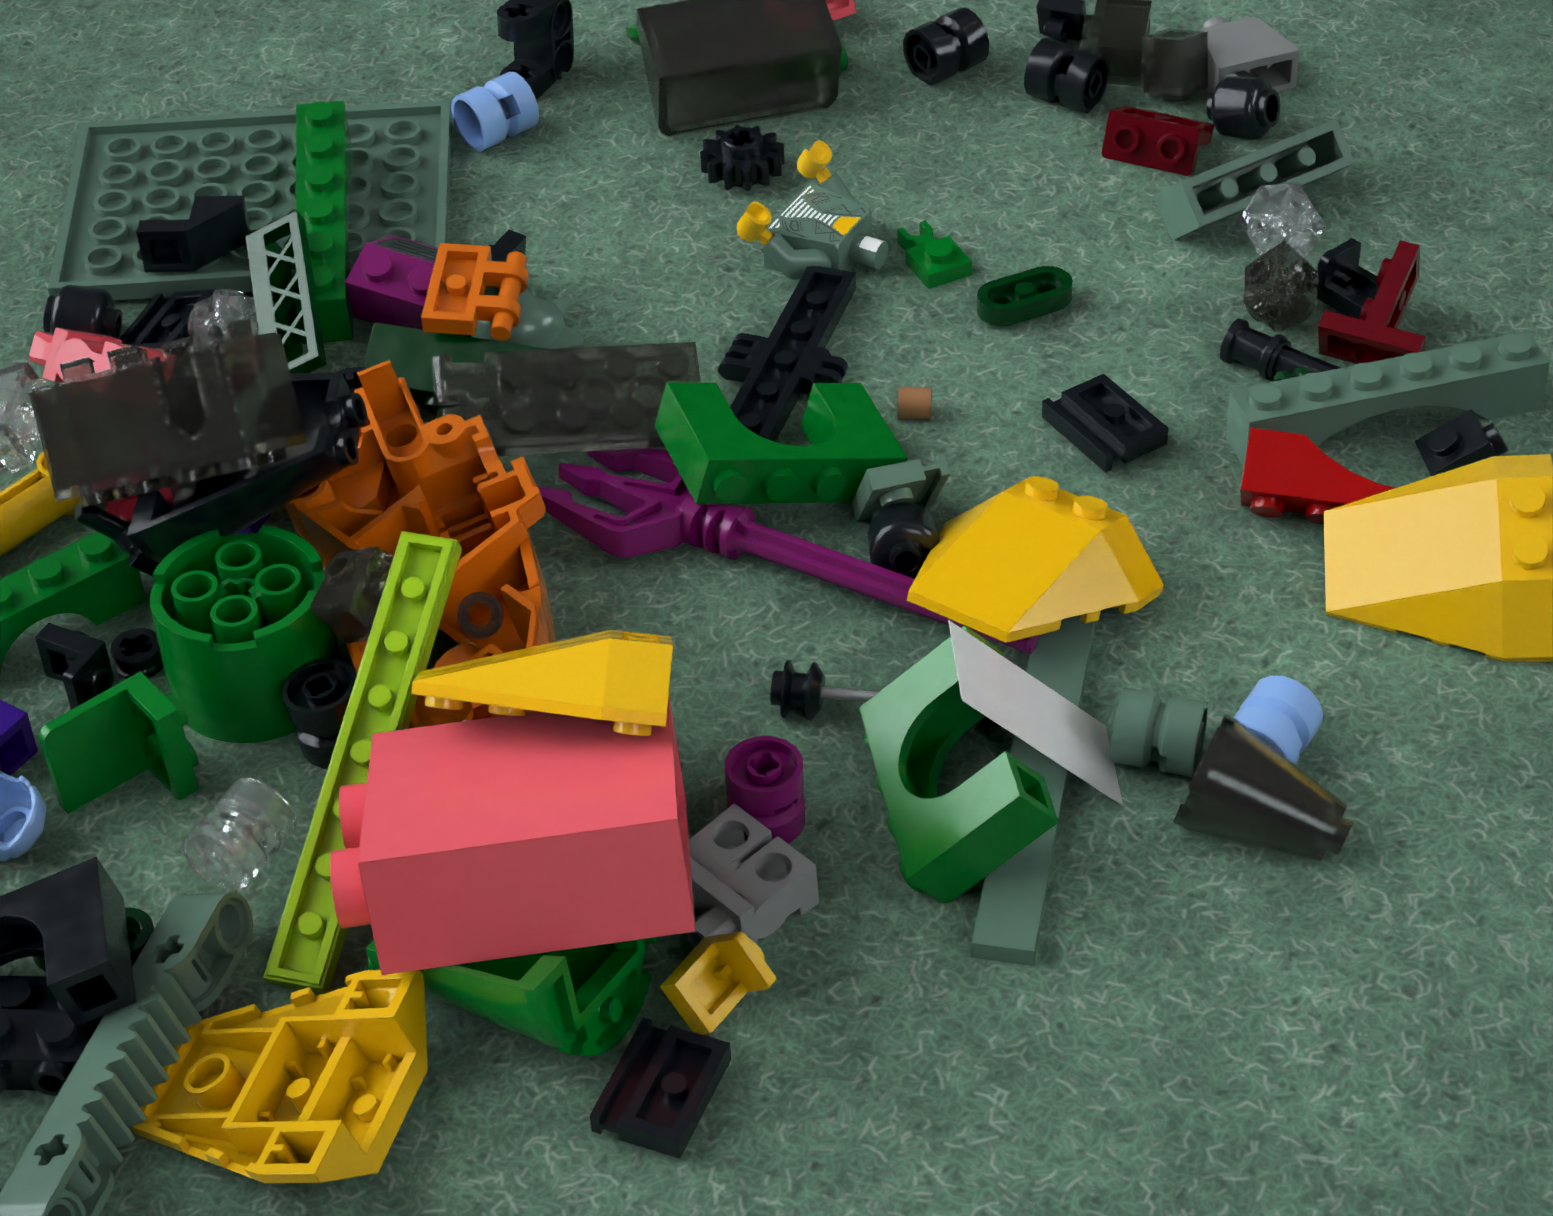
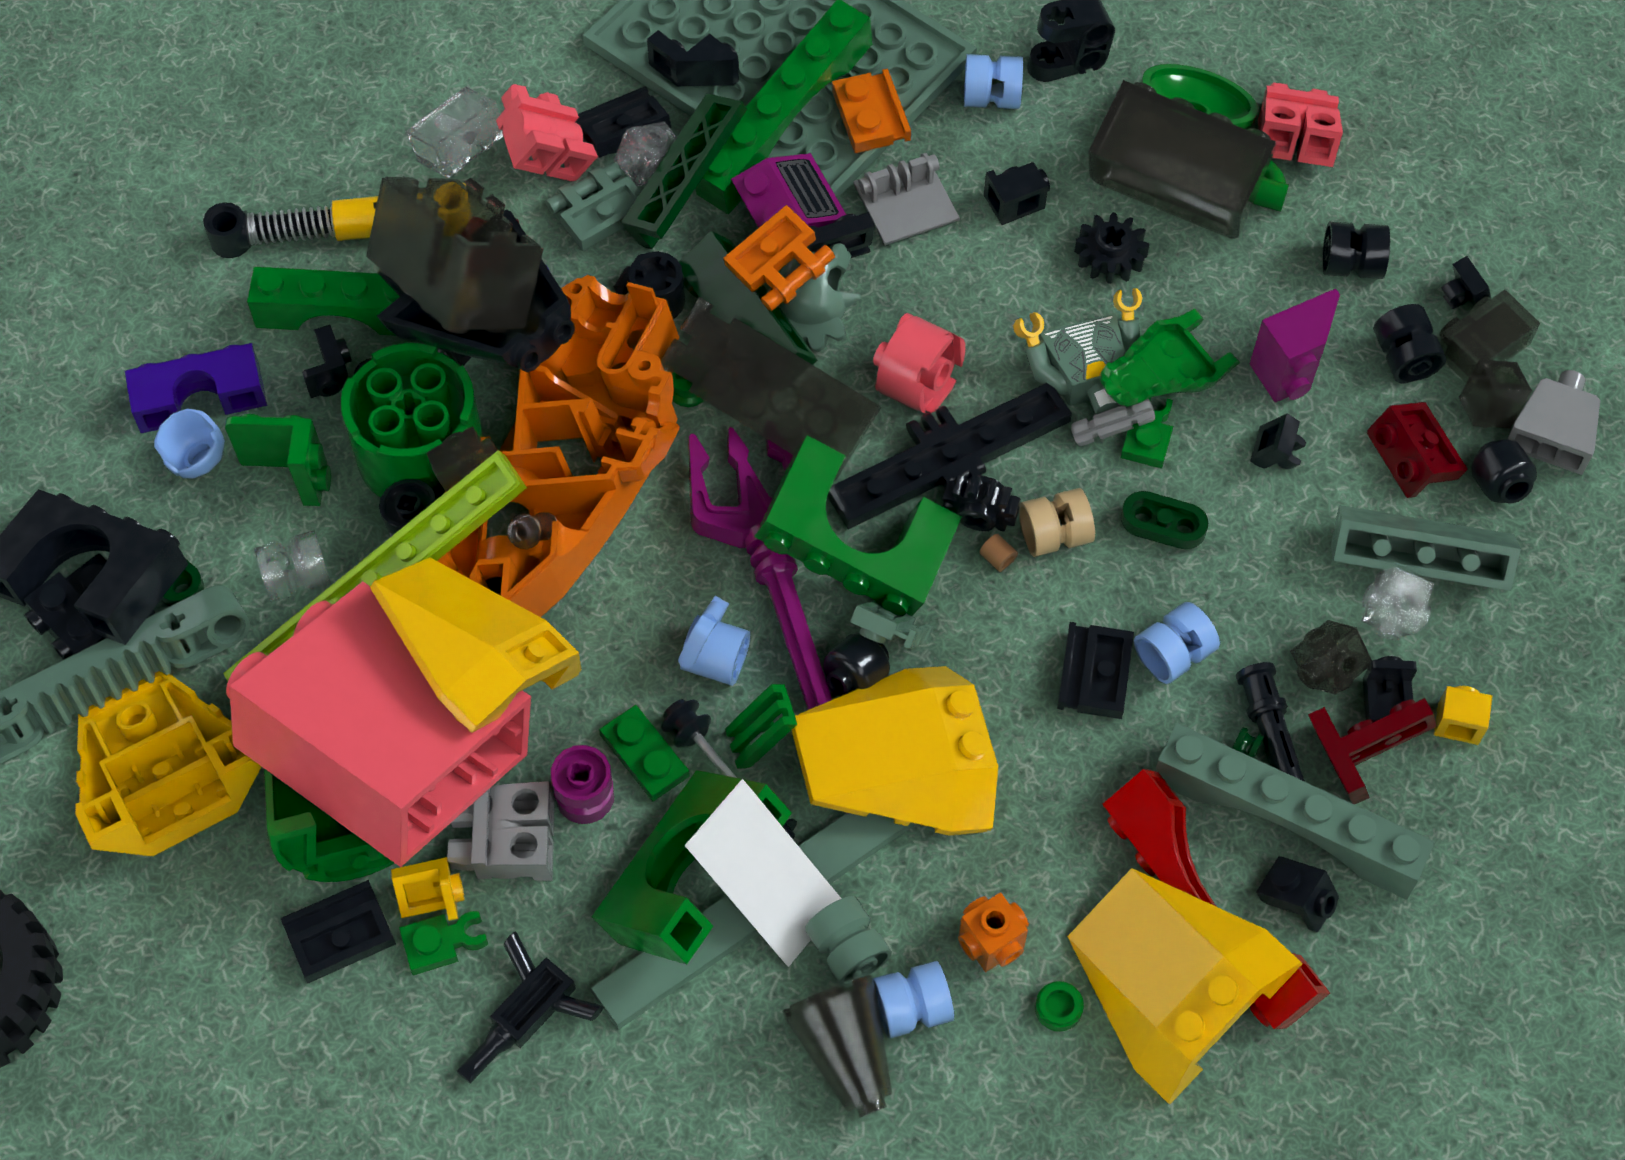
camera: 40 degrees right, 20 degrees up
(82, 310) = (577, 78): black head -> none
(410, 183) = (871, 111): none -> orange plate
(506, 211) = (906, 199): none -> light grey hinge
(609, 169) = (1016, 192): none -> black brick
(682, 306) = (918, 363): none -> coral brick
(754, 613) = (713, 646): none -> light blue piece
(773, 1029) = (433, 942): none -> green plate
(817, 741) = (644, 753): none -> green plate
(859, 627) = (759, 718): none -> green tile
(868, 359) = (981, 503): none -> black gear
(893, 198) = (1164, 363): none -> green animal
(897, 258) = (1112, 422): none -> light grey axle
(931, 1003) = (527, 1008): none -> black piece
(941, 345) = (1042, 527): none -> tan wheel
(988, 118) = (1292, 346): none -> magenta slope
(1047, 194) = (1276, 442): none -> black tile
(1149, 355) = (1181, 639): none -> light blue wheel
(1273, 628) = (988, 944): none -> orange brick
(1386, 660) = (1059, 1006): none -> green tile
(1437, 261) = (1463, 714): none -> yellow plate

